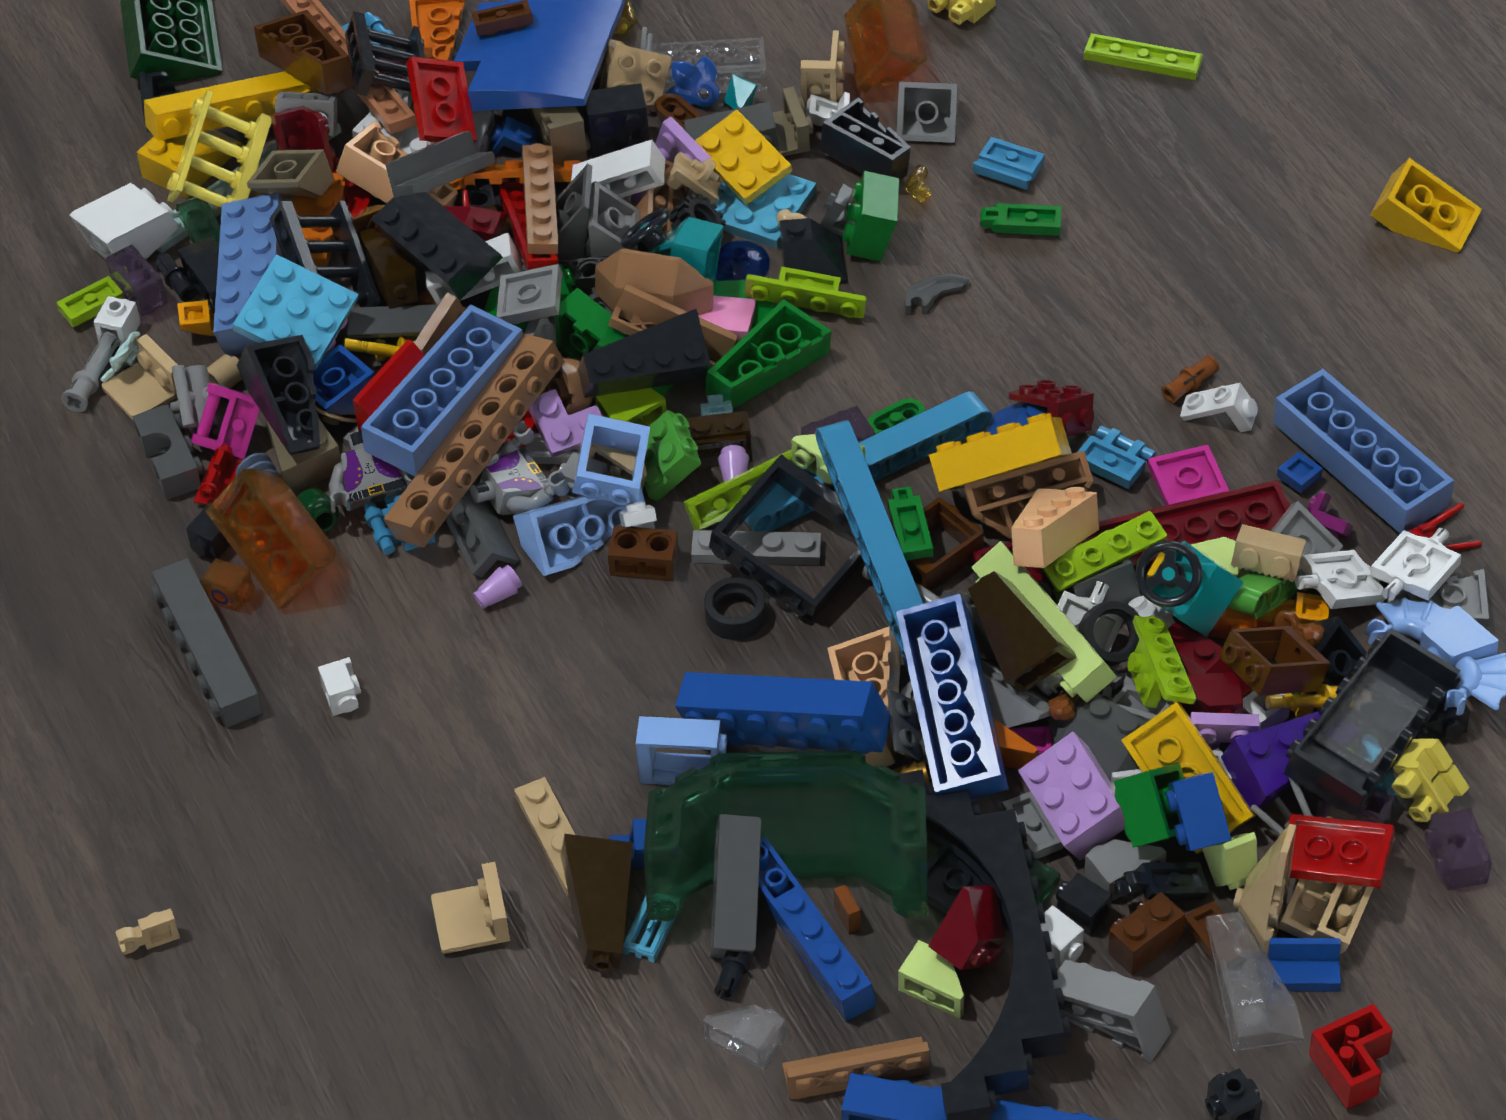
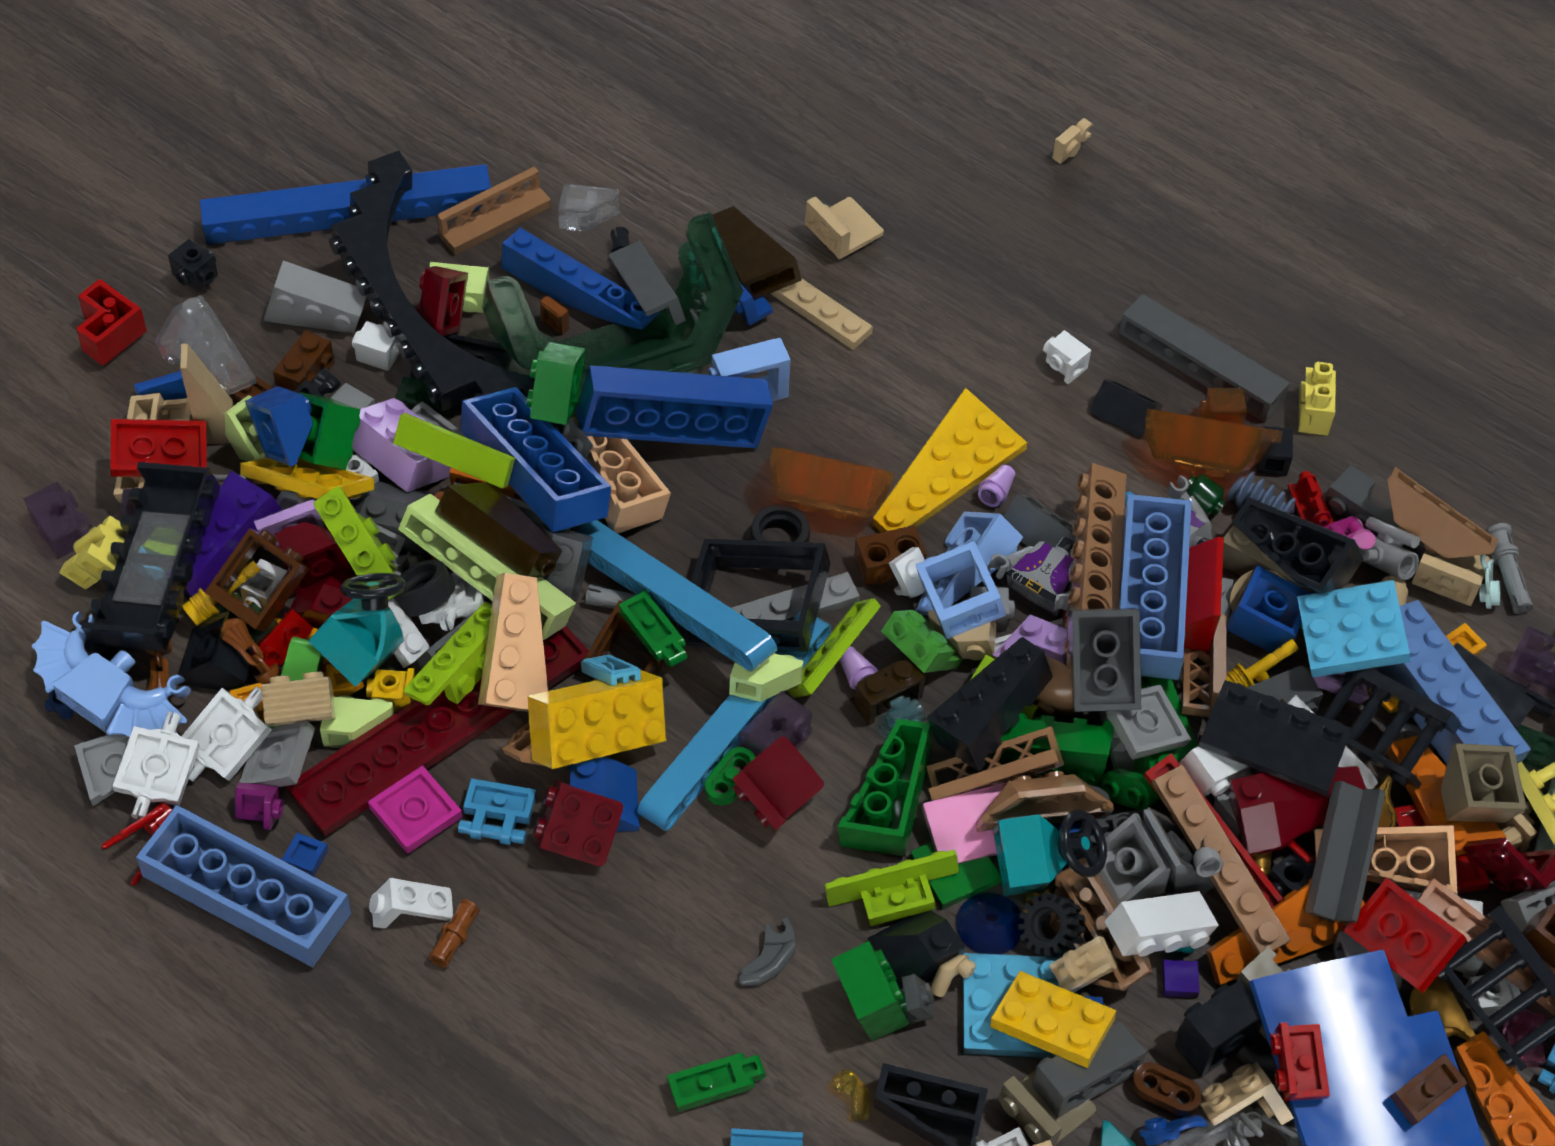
camera: 150 degrees right, 5 degrees up
(118, 318) = (1531, 613): white brick -> none
(131, 388) = (1434, 521): none -> medium nougat wedge
(133, 560) = (1317, 399): none -> light yellow hips
(314, 624) = (1123, 407): none -> black panel
(524, 630) = (955, 459): none -> yellow wing
(537, 316) = (1105, 659): none -> dark grey slope
(557, 182) = (1207, 862): none -> light grey hinge
(588, 44) = (1300, 1062): none -> red bracket
(656, 623) = (828, 483): none -> clear orange windscreen
(675, 139) = (1133, 1003): lavender plate -> none
(879, 387) = (777, 782): none -> dark red bracket
(898, 735) = (556, 383): none -> green brick
(983, 485) = (612, 671): none -> medium azure tile
(1033, 708) = (454, 450): none -> lime tile
(1084, 903) = (366, 375): black brick -> none

